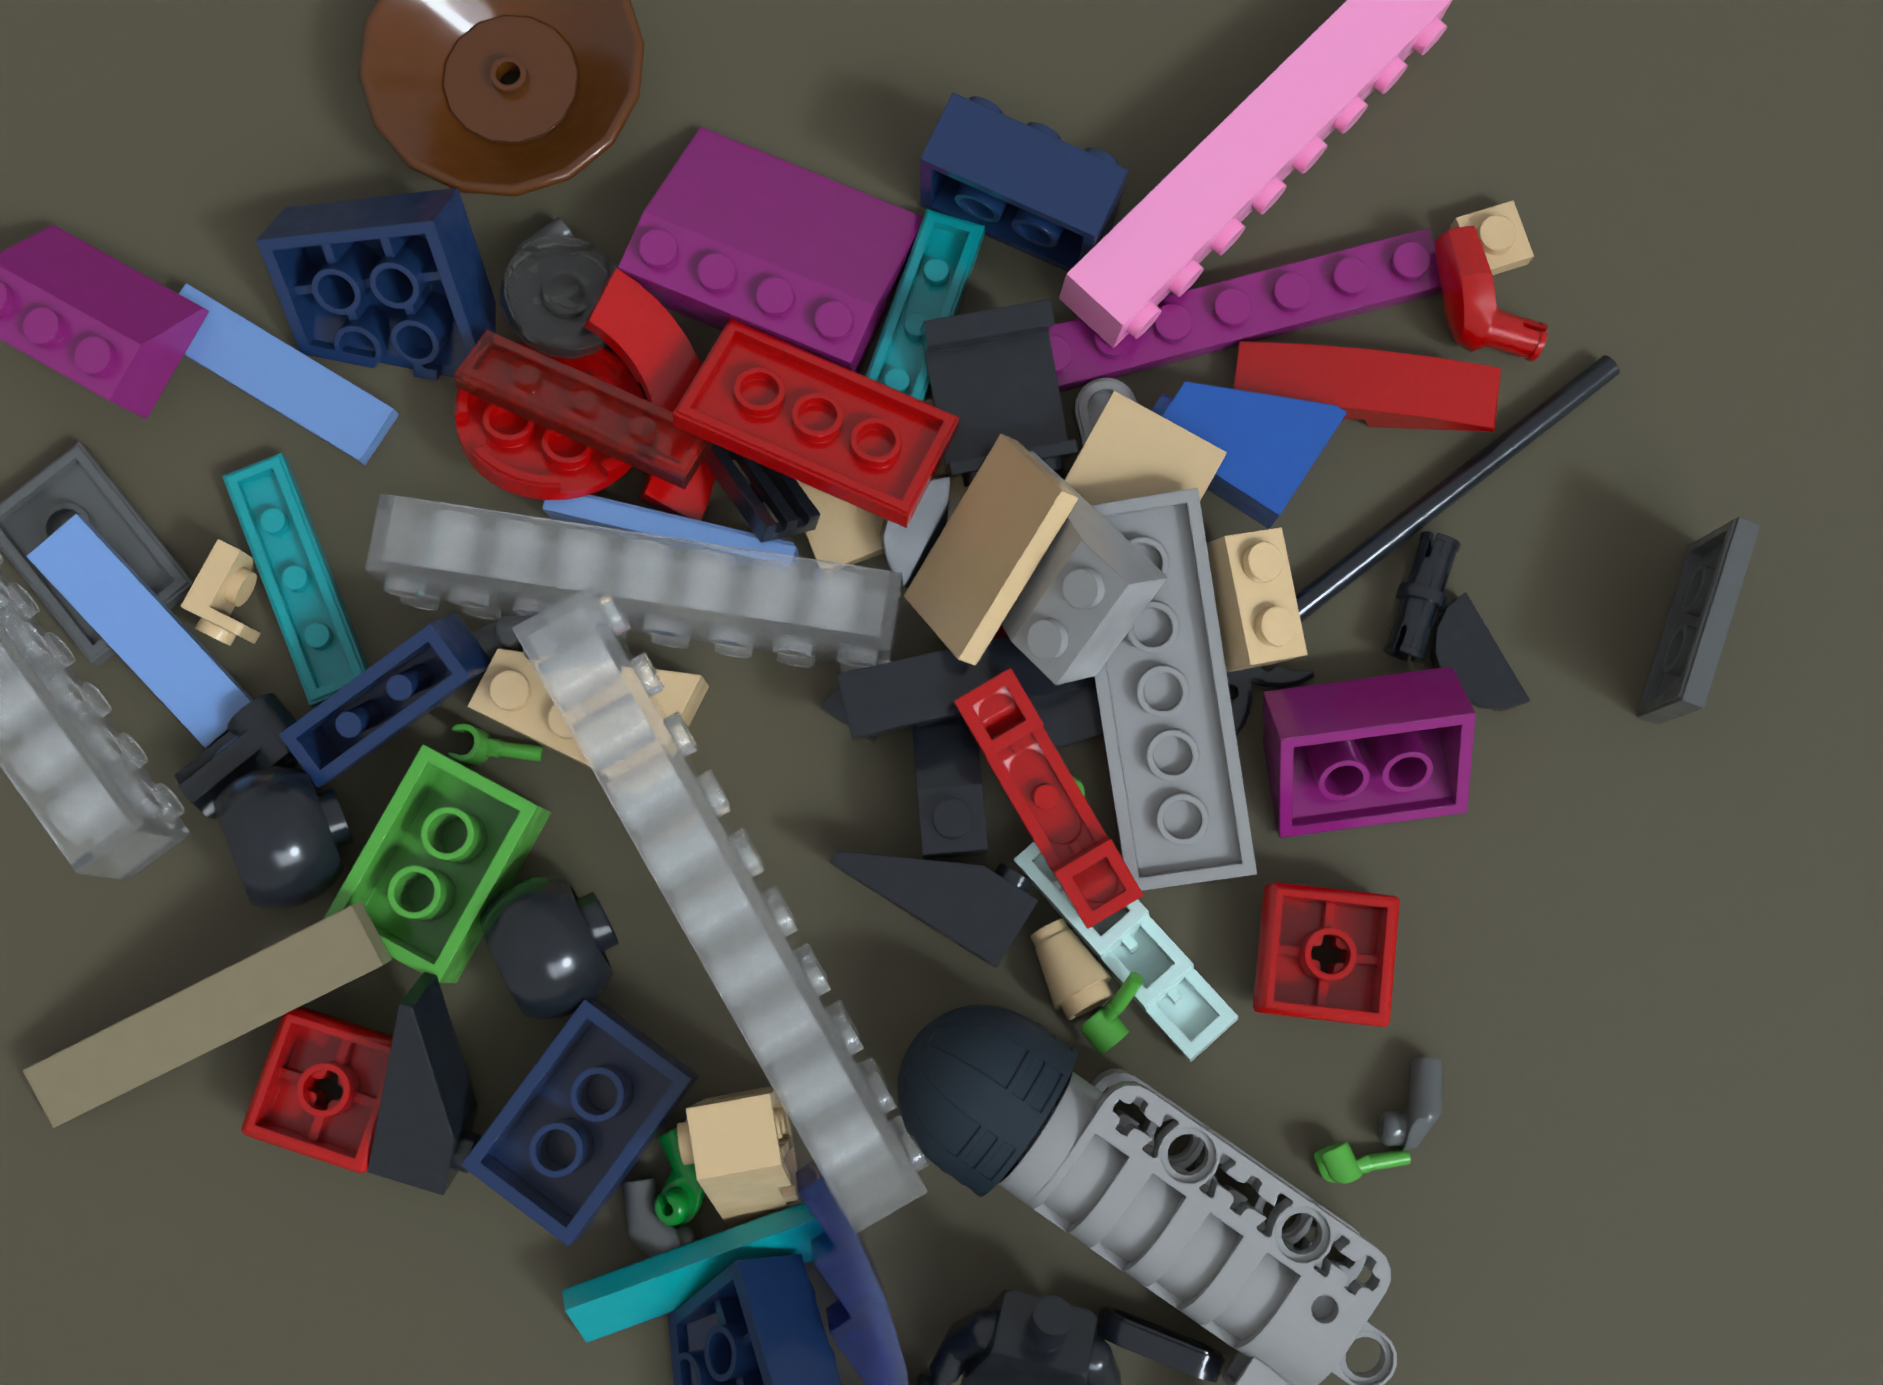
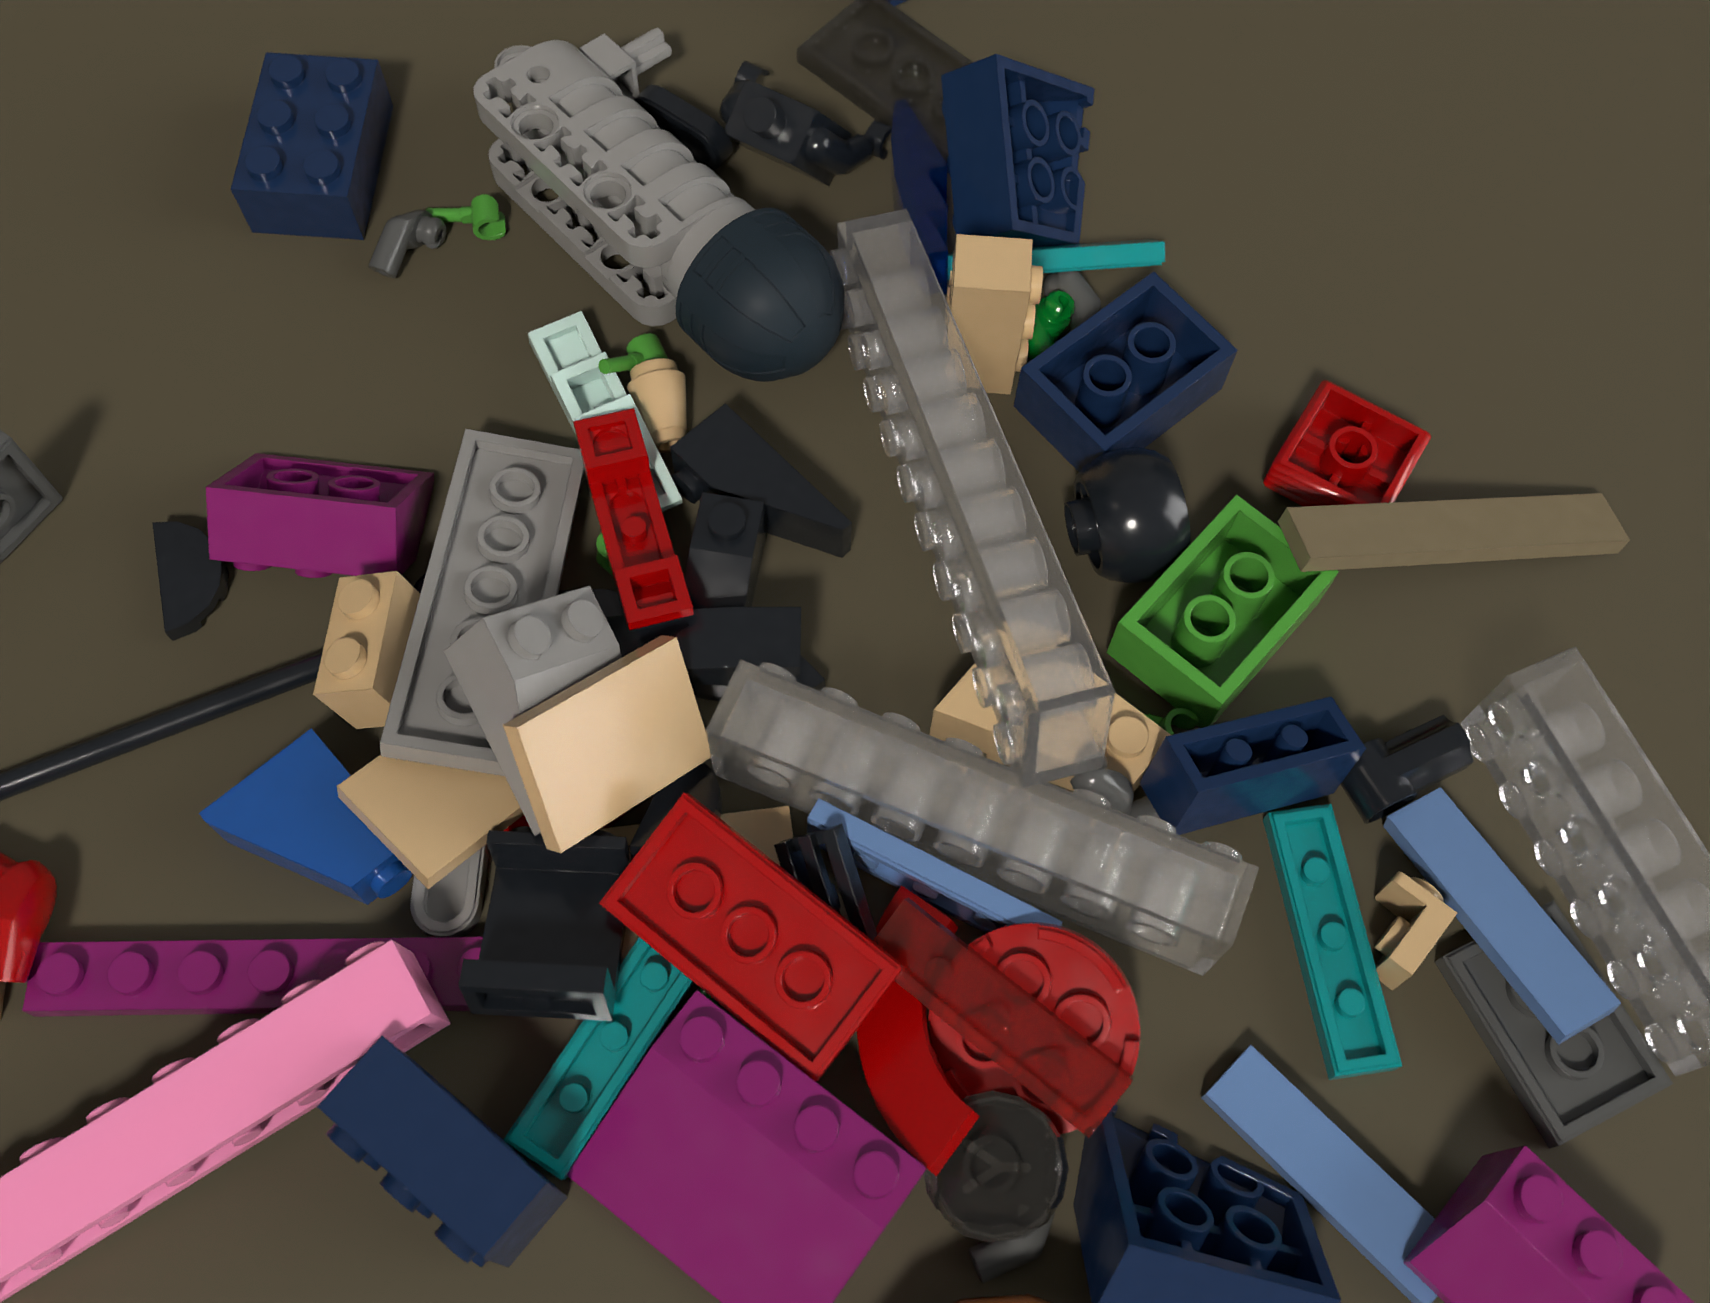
camera: 165 degrees left, 15 degrees down
(282, 835) = (1373, 665): black wheel -> none
(425, 1097) = (1259, 416): black slope -> none
(1357, 925) = (431, 359): red brick -> none
(1375, 384) = (167, 850): red slope -> none
(1422, 597) = (208, 640): black pin -> none
(1563, 1199) = (313, 146): none -> dark blue brick

